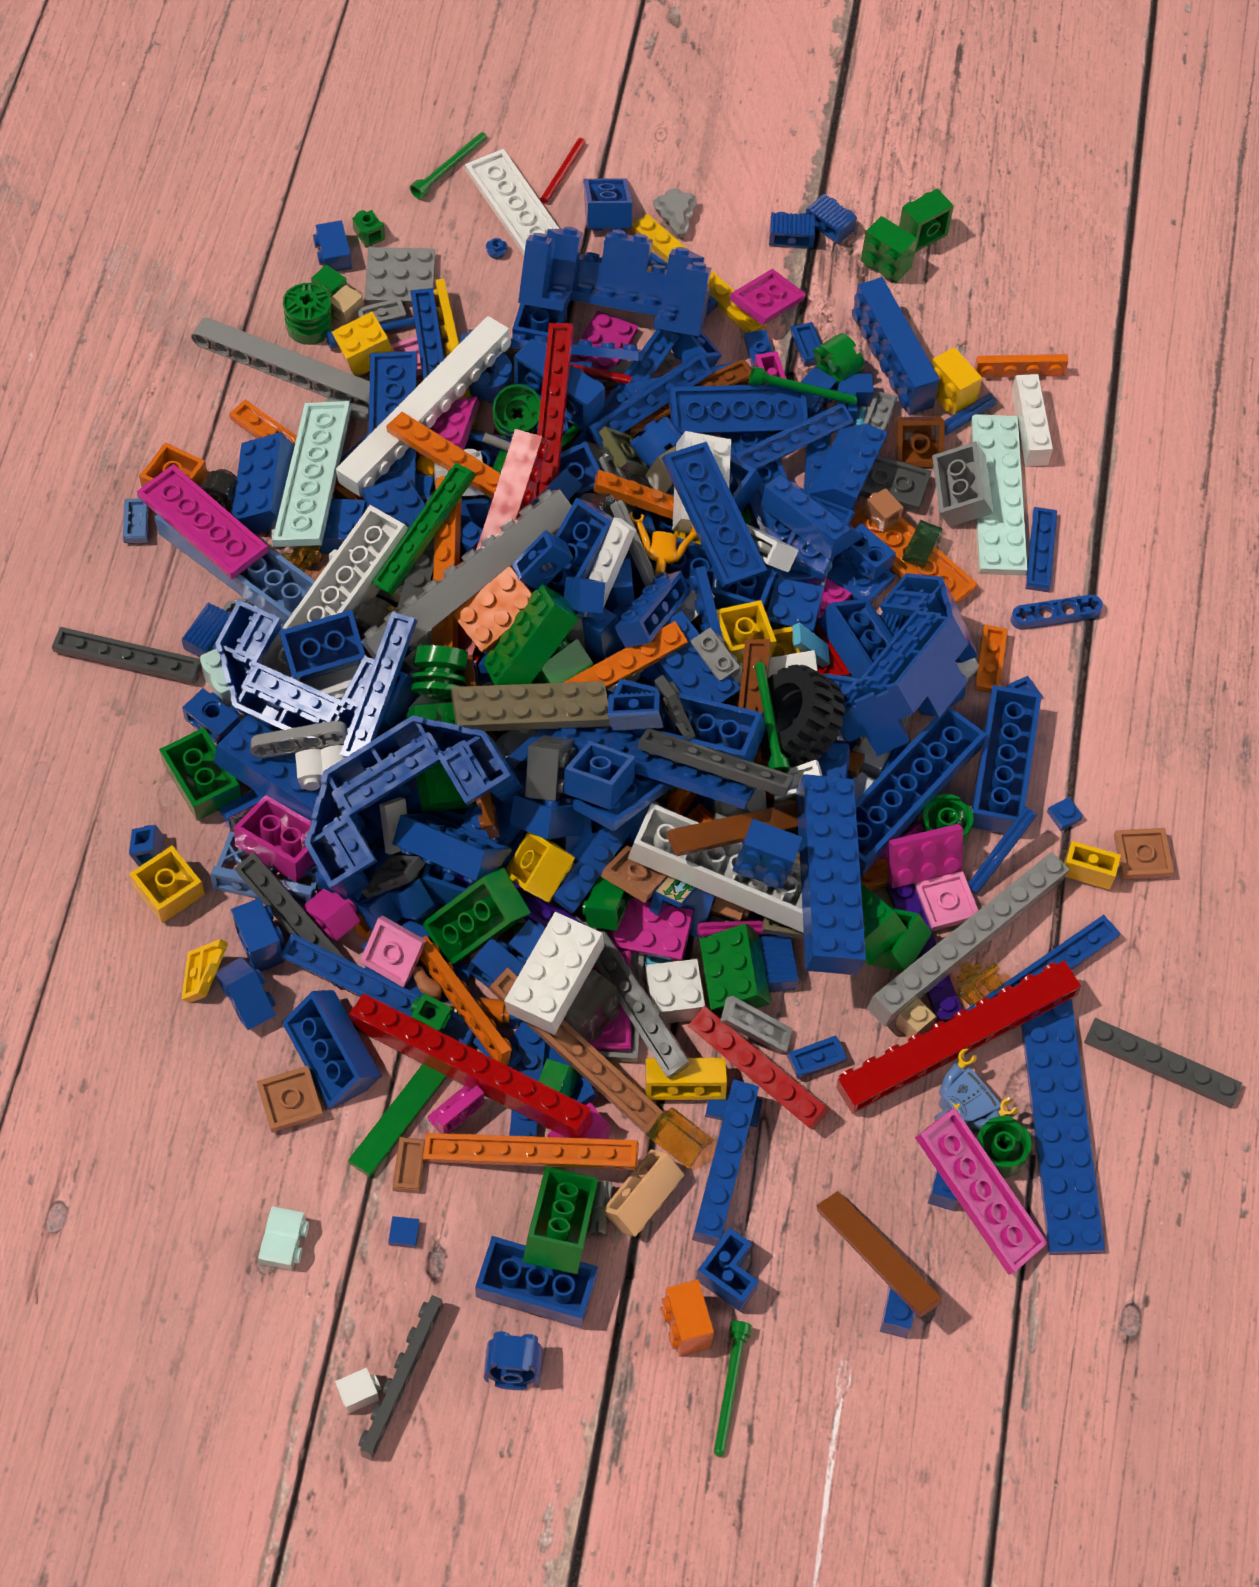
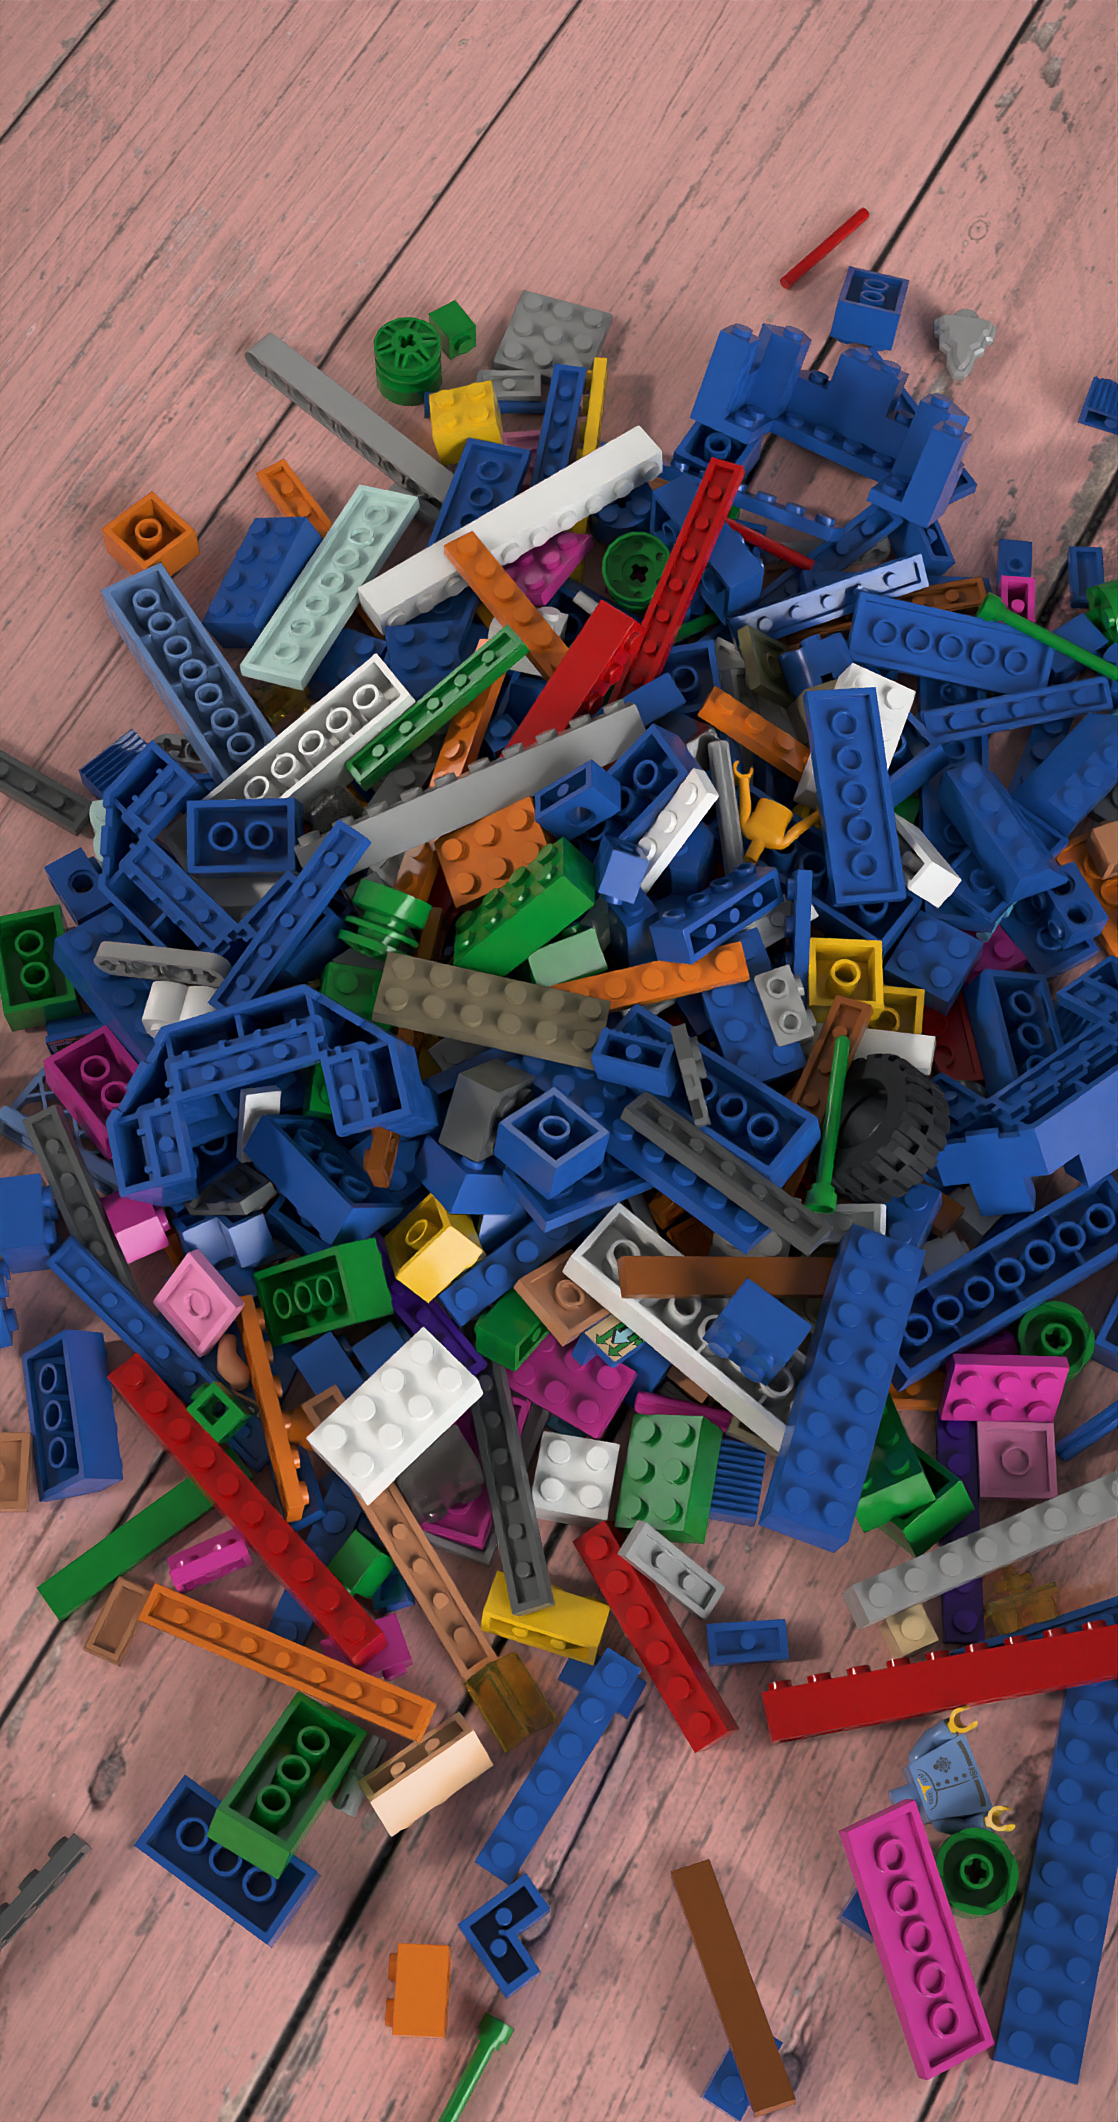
camera: 20 degrees right, 5 degrees up
(135, 521) = (83, 588): medium blue plate -> none
(202, 521) = (157, 615): dark pink plate -> none
(221, 487) = (201, 576): clear smoke piece -> none
(333, 246) = (476, 277): blue brick -> none
(345, 304) = (463, 360): tan brick -> none
(365, 224) = (530, 257): green brick -> none
(404, 1232) = (76, 1719): blue tile -> none
(420, 187) = (622, 224): green piece -> none
(496, 248) = (696, 334): blue plate -> none
(510, 197) = (739, 265): white plate -> none
(513, 1361) = (152, 1972): blue brick -> none
(606, 329) = (809, 487): dark pink plate -> none
(663, 244) = (993, 484): yellow plate -> none
(767, 296) = (1048, 495): dark pink plate -> none
(807, 641) = (937, 1020): medium azure tile -> none

